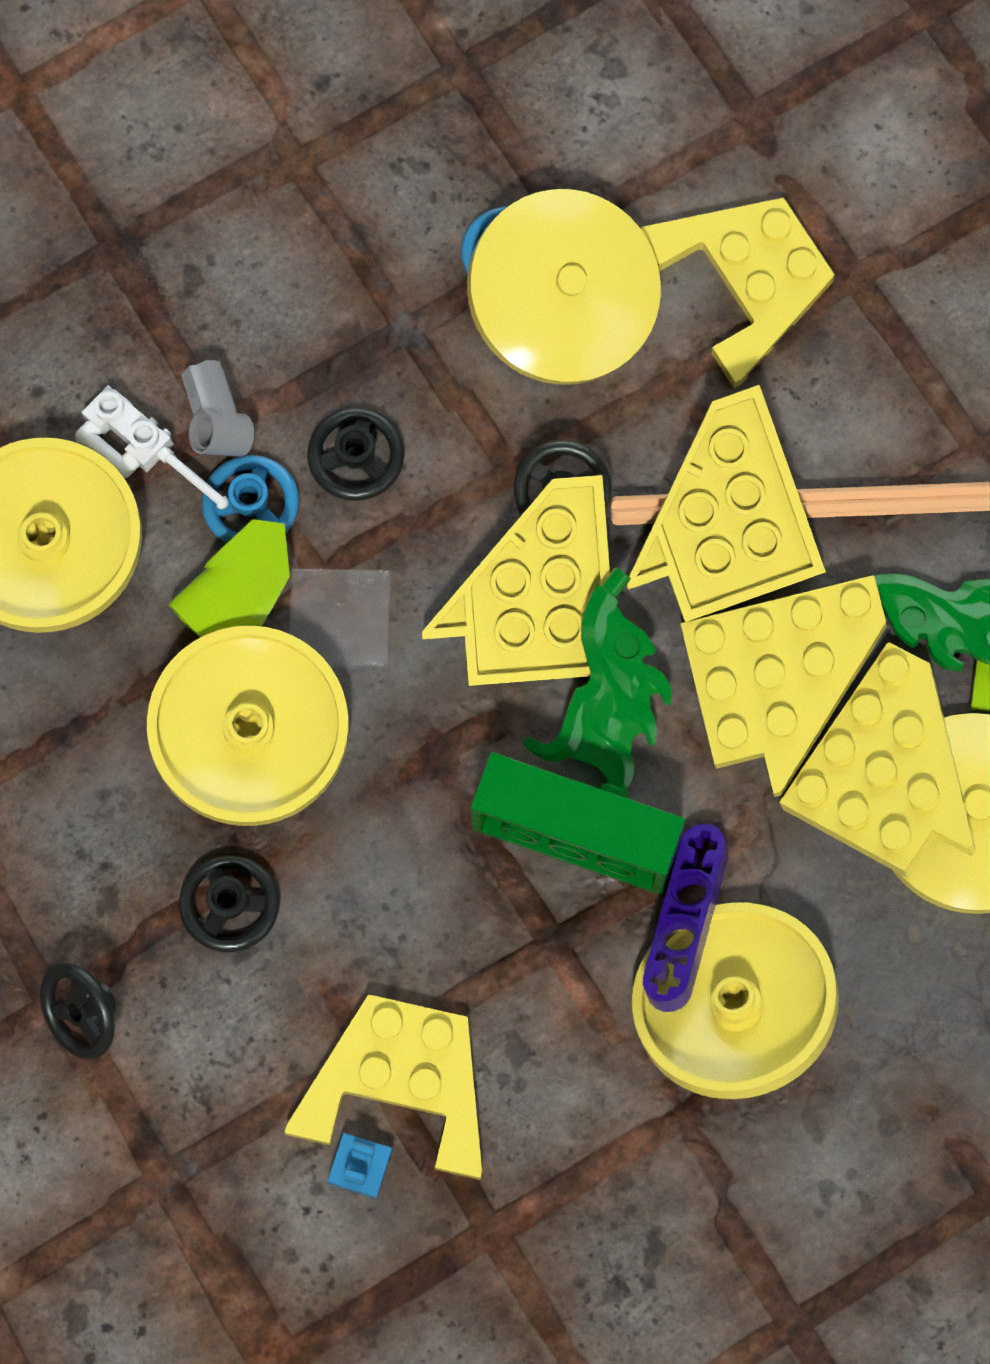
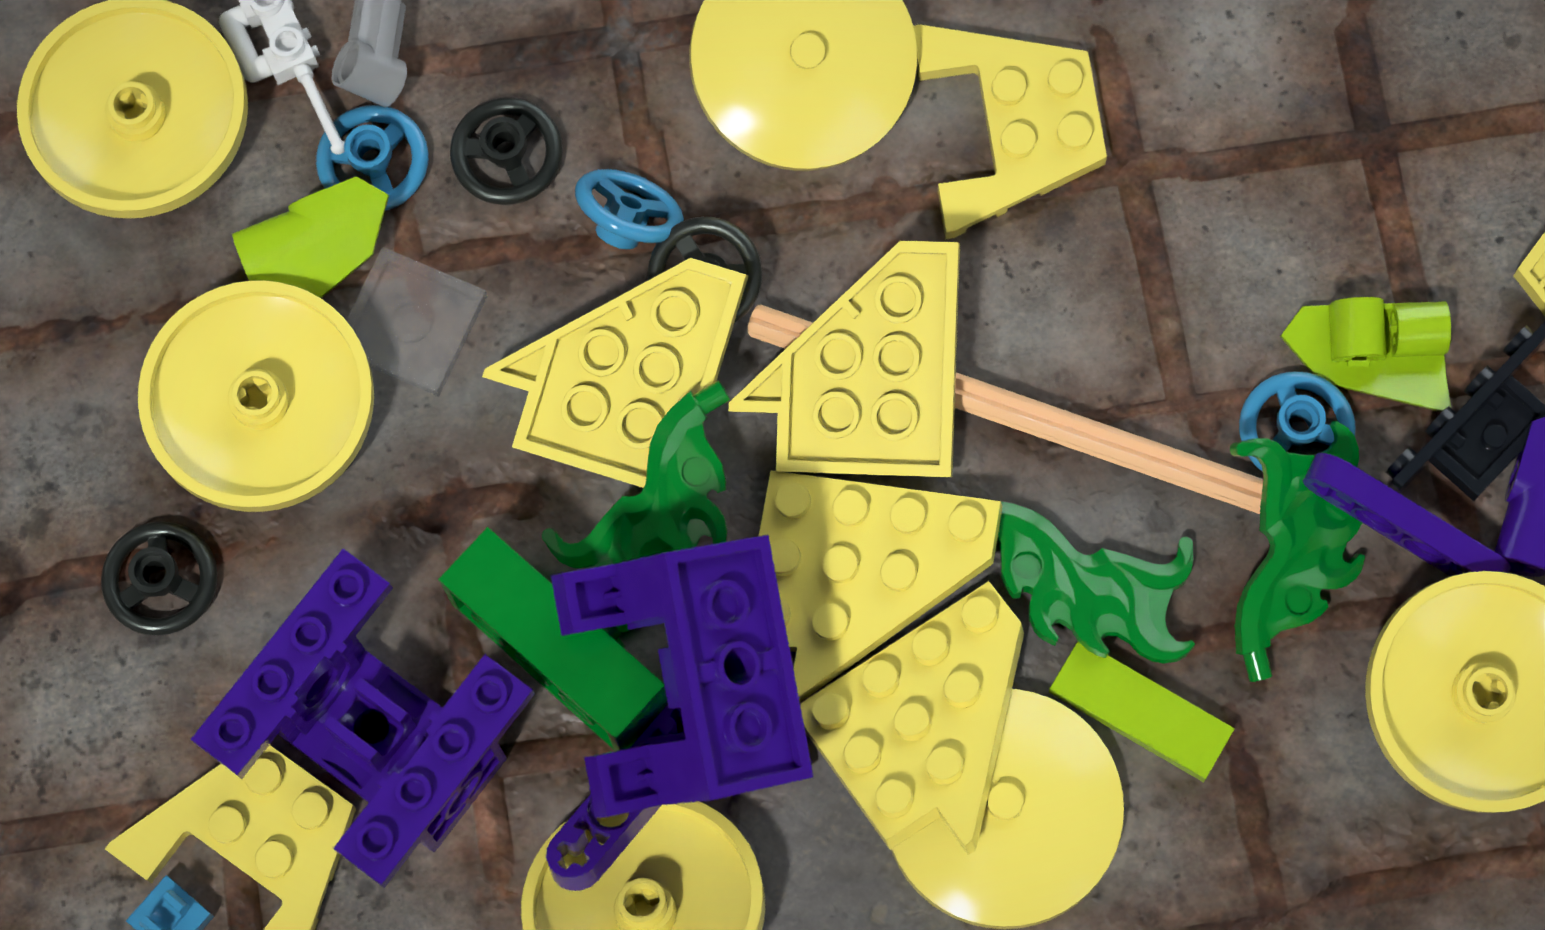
camera: 25 degrees right, 0 degrees up
(405, 933) = (323, 687): none -> dark purple piece
(477, 467) = (625, 215): none -> dark azure piece
(730, 785) = (722, 669): none -> dark purple piece

